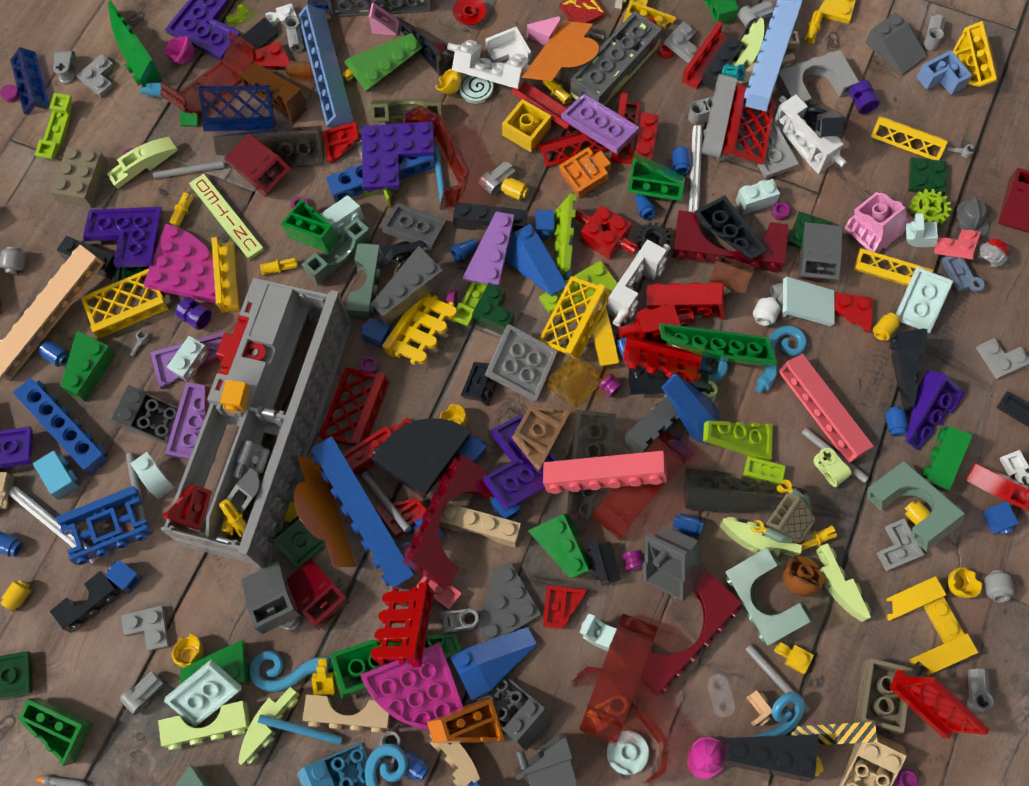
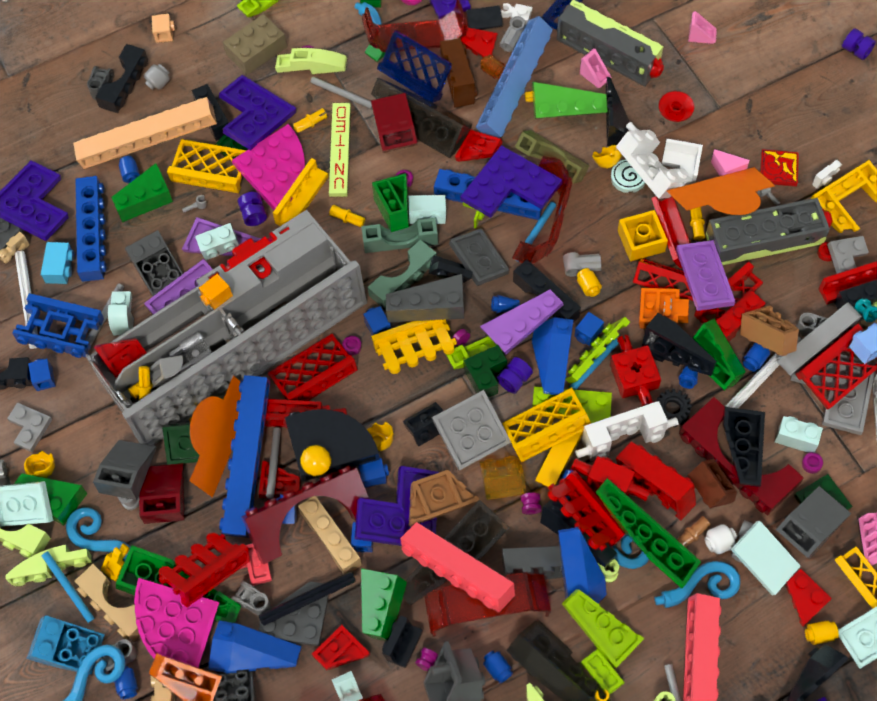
camera: 40 degrees right, 5 degrees down
(426, 473) = (315, 460): none -> yellow hair
(504, 586) = (307, 598): none -> black axle
(518, 297) = (514, 376): none -> dark purple wheel
(623, 190) = (673, 344): none -> black wedge
(681, 132) = (770, 330): none -> medium nougat wedge
(743, 319) = (692, 533): none -> medium nougat pin

